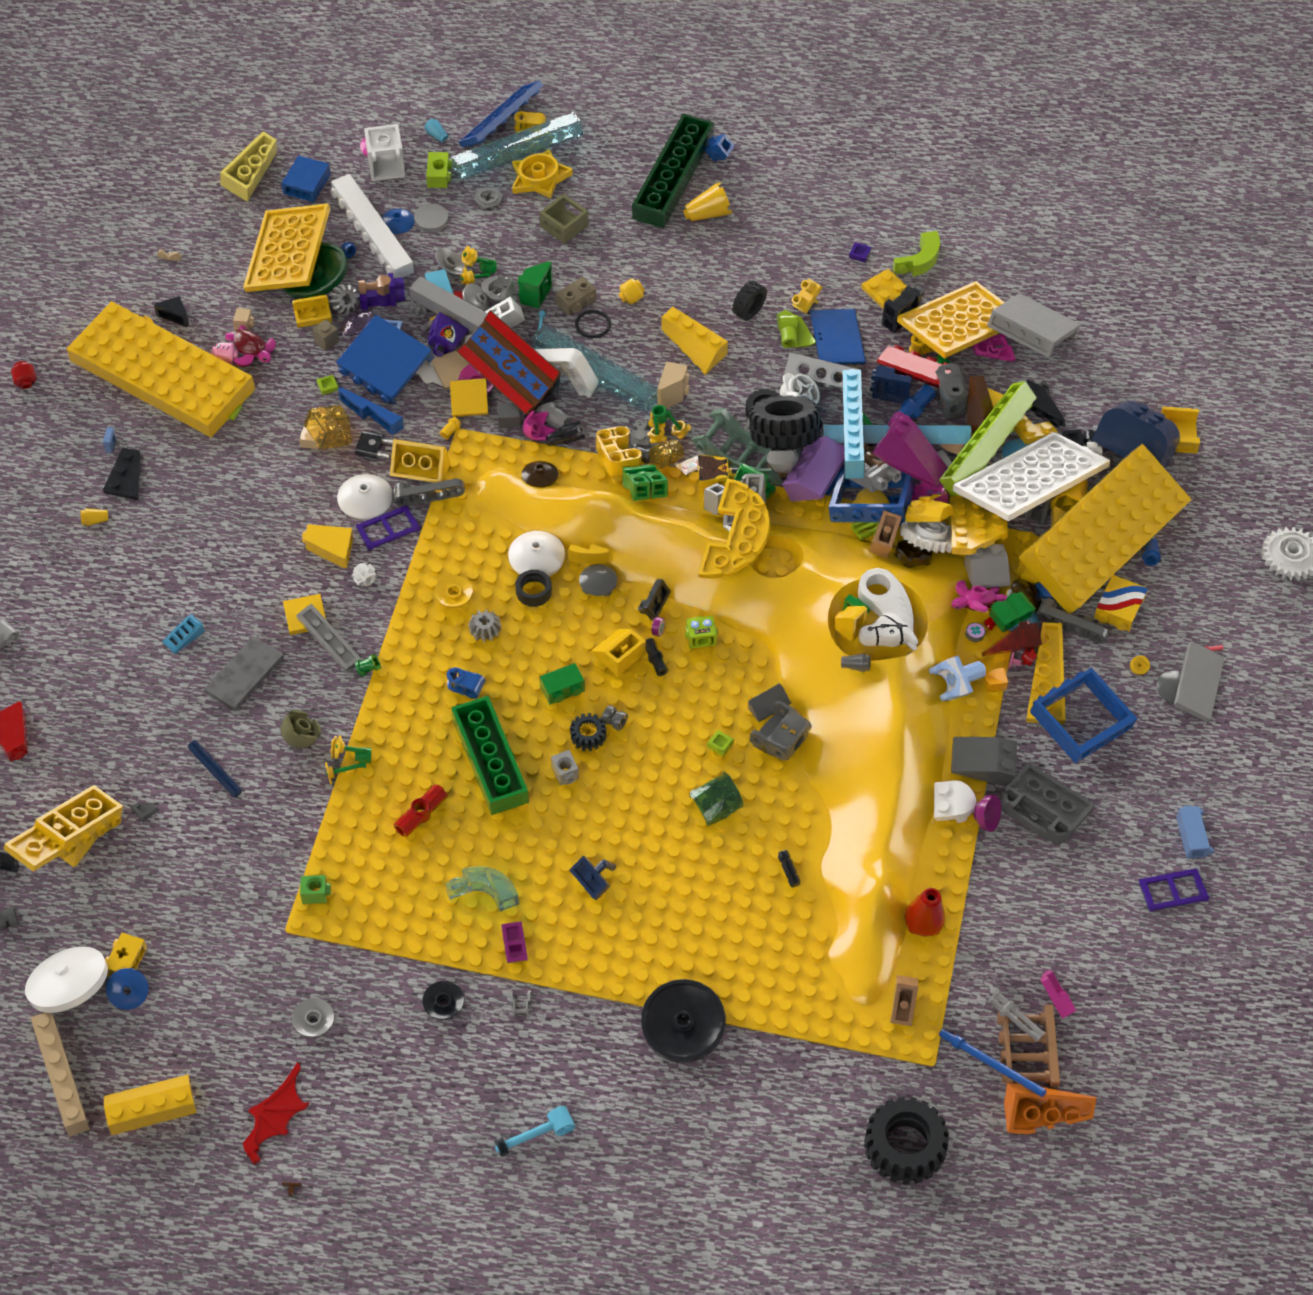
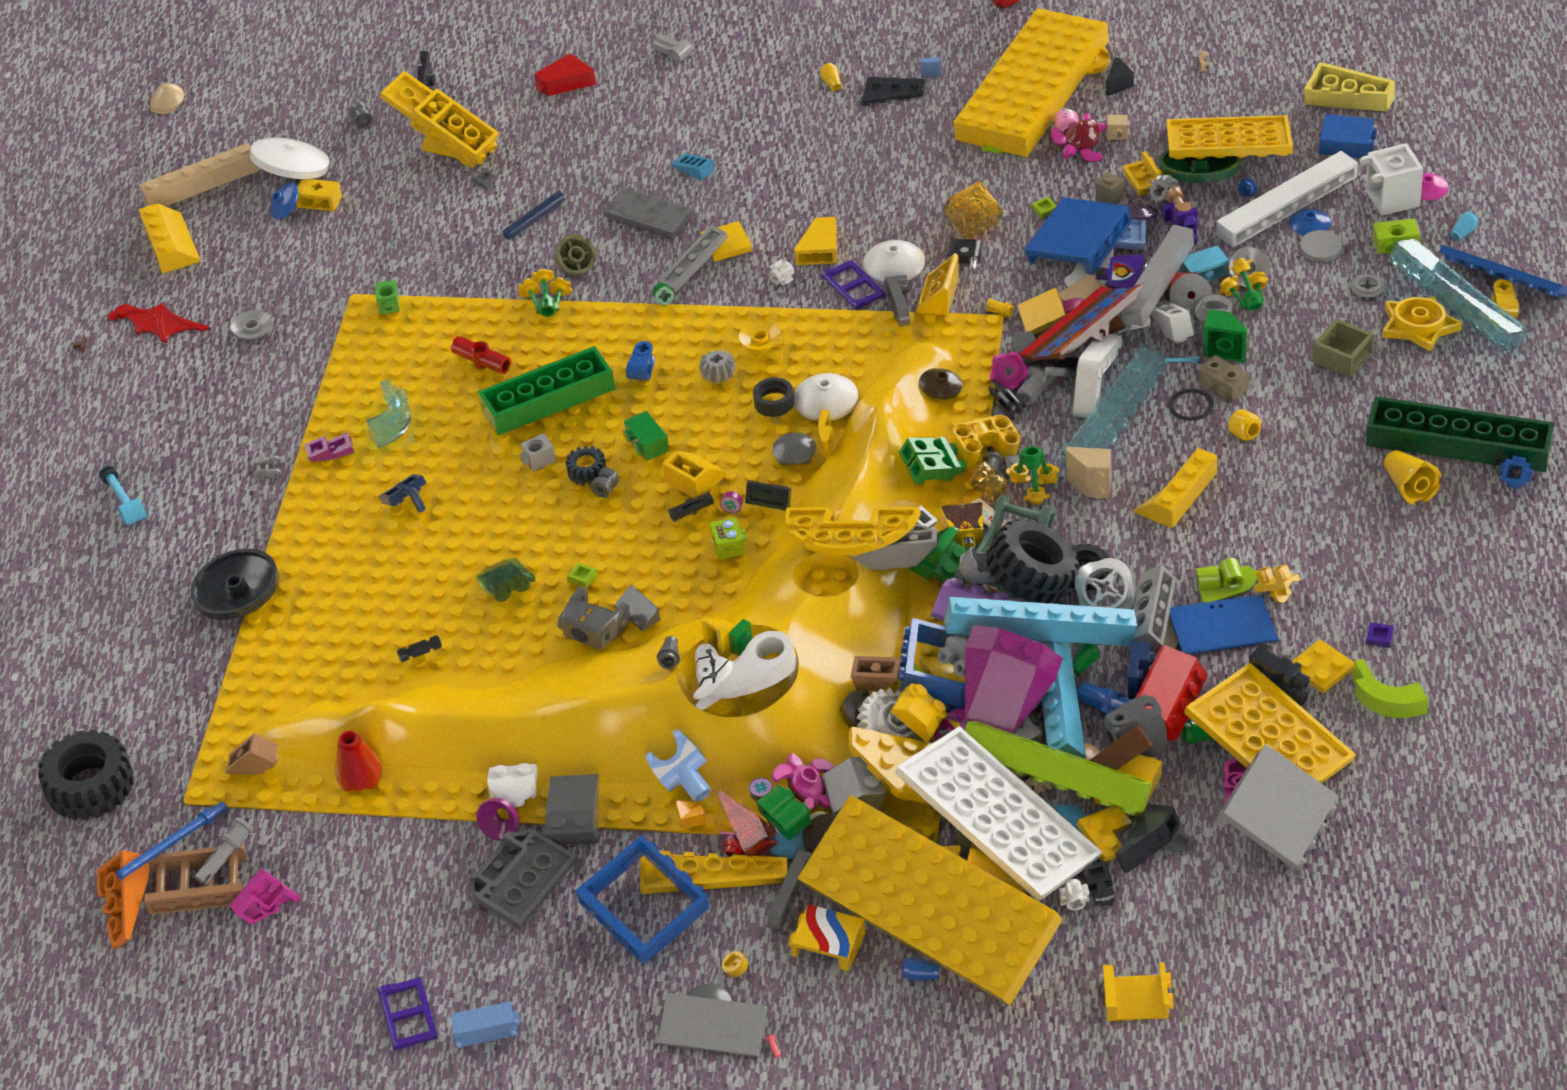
camera: 90 degrees right, 10 degrees down
(363, 408) = (1012, 234): blue slope -> none
(441, 992) = (267, 409): black dish -> none
(749, 300) = (1255, 516): black tyre -> none
(1134, 424) = (1094, 931): dark blue brick -> none

